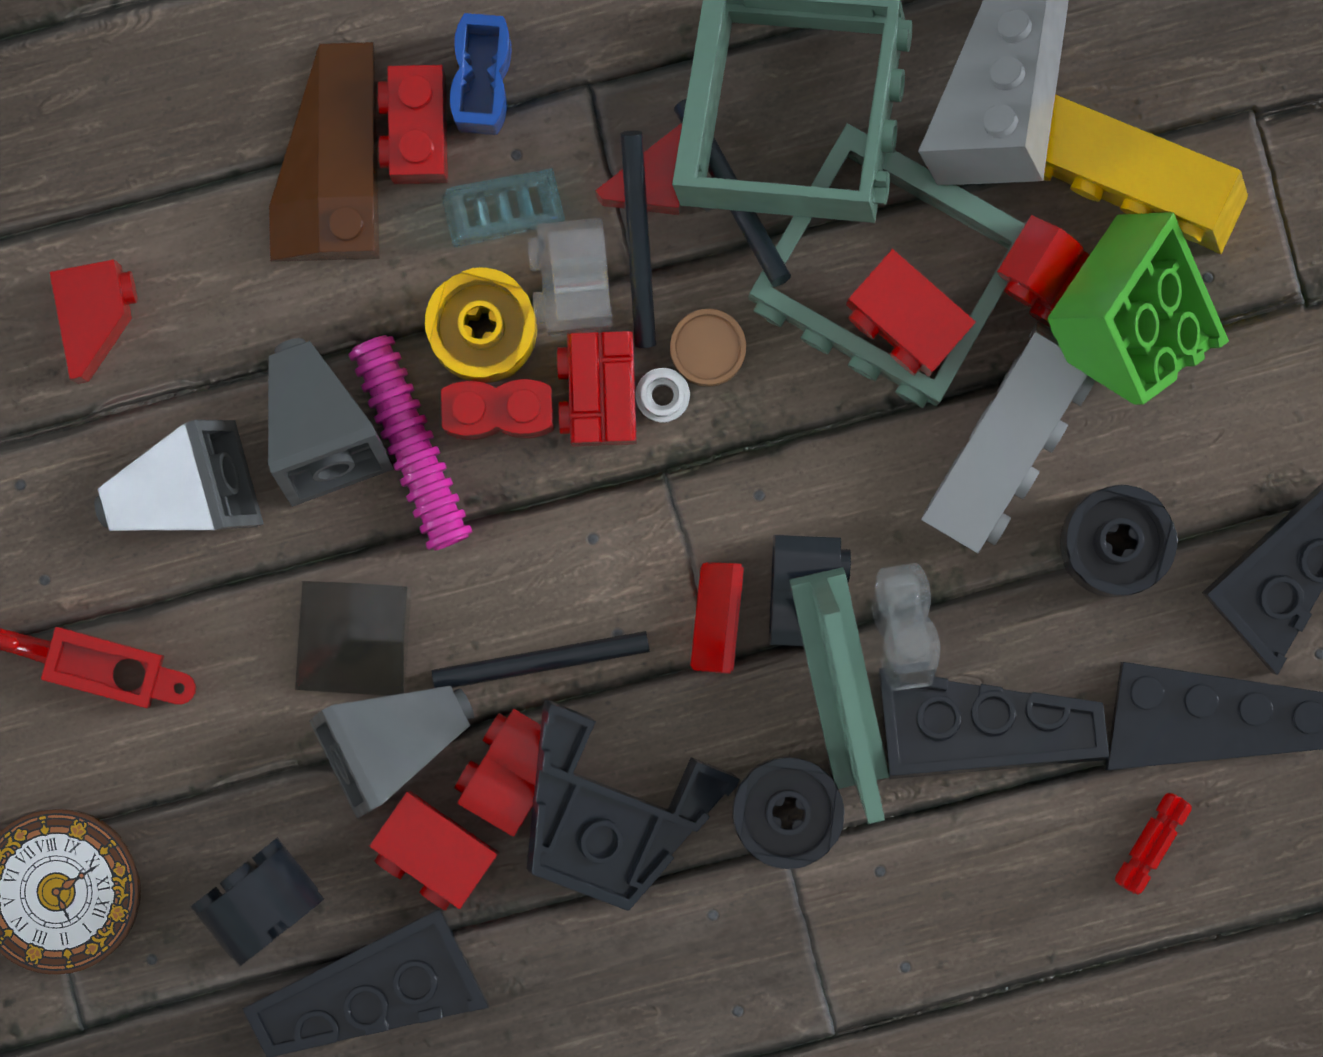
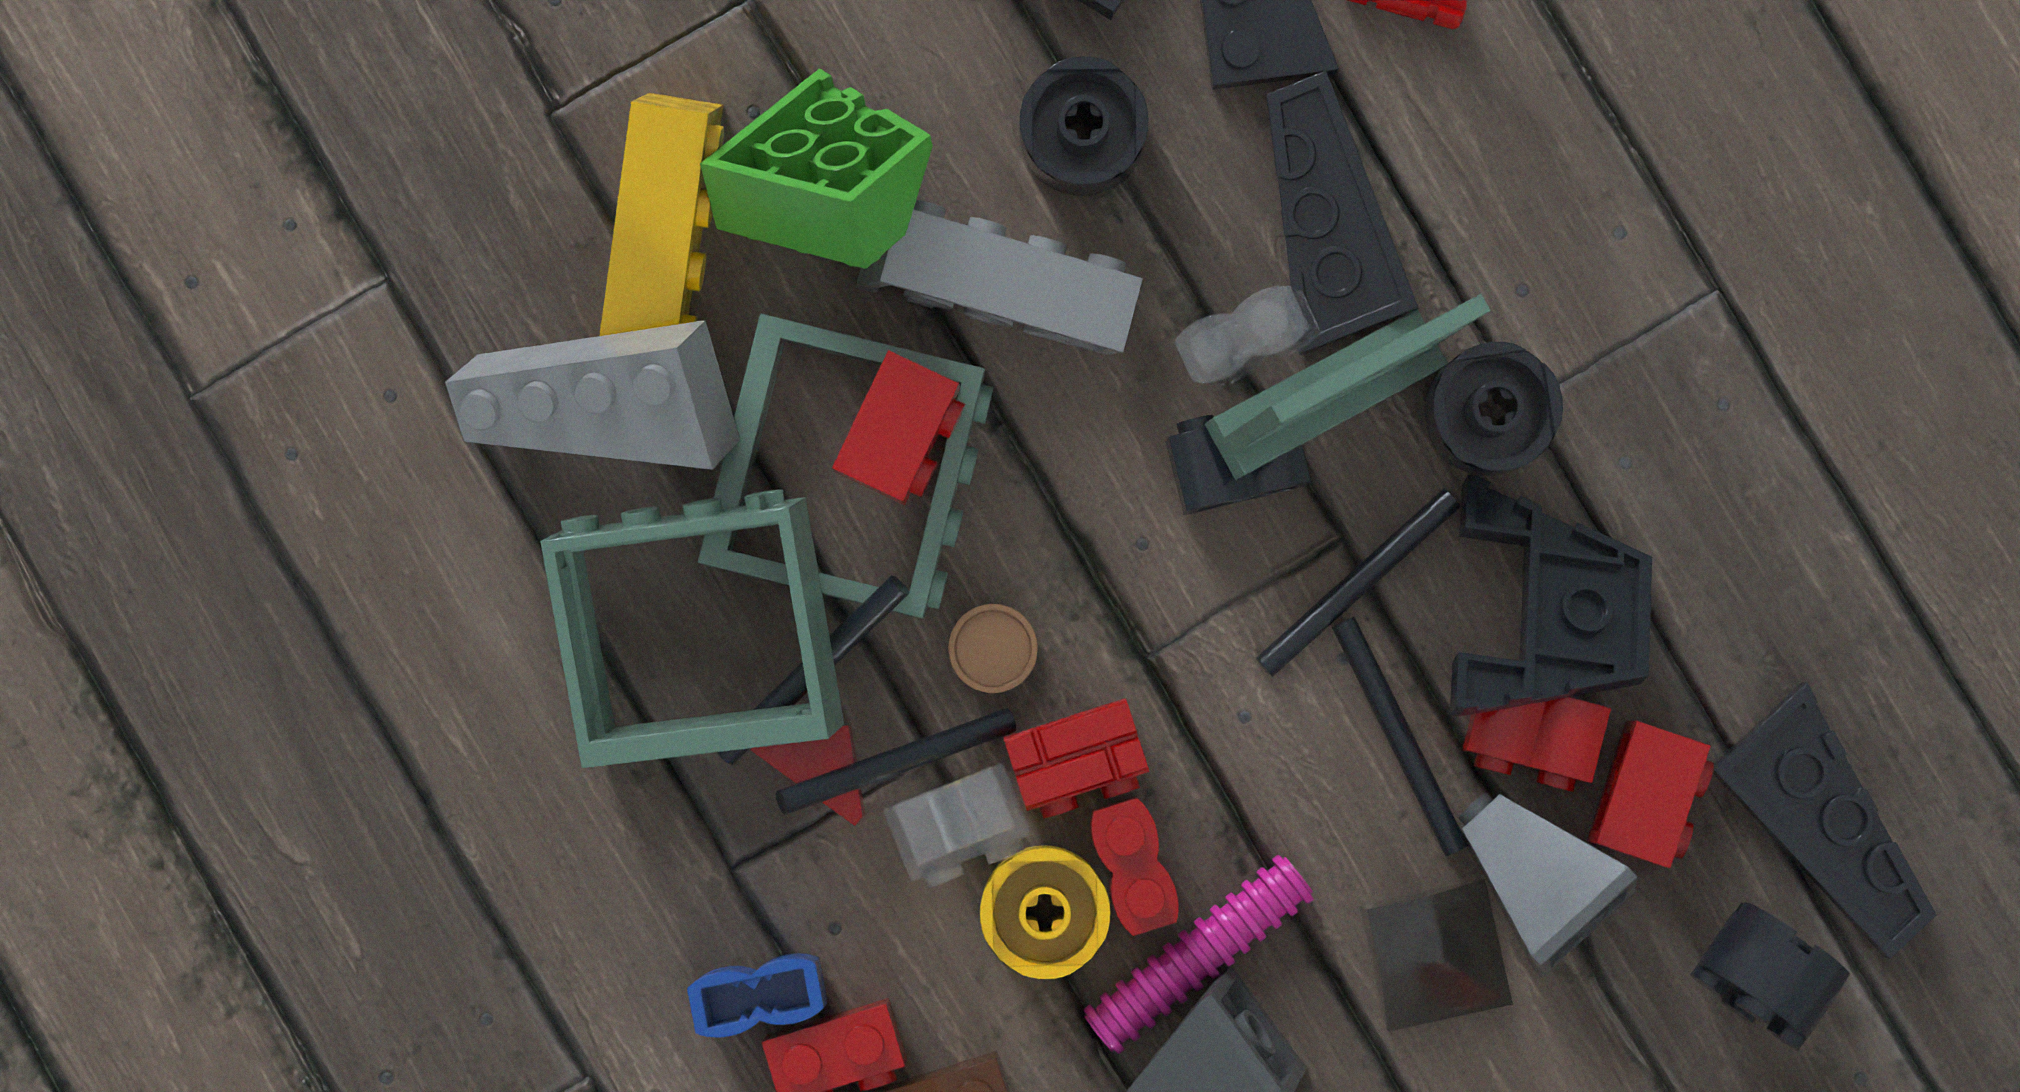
camera: 105 degrees left, 0 degrees up
(457, 218) = (925, 975): clear light blue slope -> none
(657, 378) = (1082, 684): white plate -> none
(676, 663) = (1358, 582): none -> black bar
(717, 617) = (1295, 551): red slope -> none
(1041, 266) = (802, 294): red brick -> none

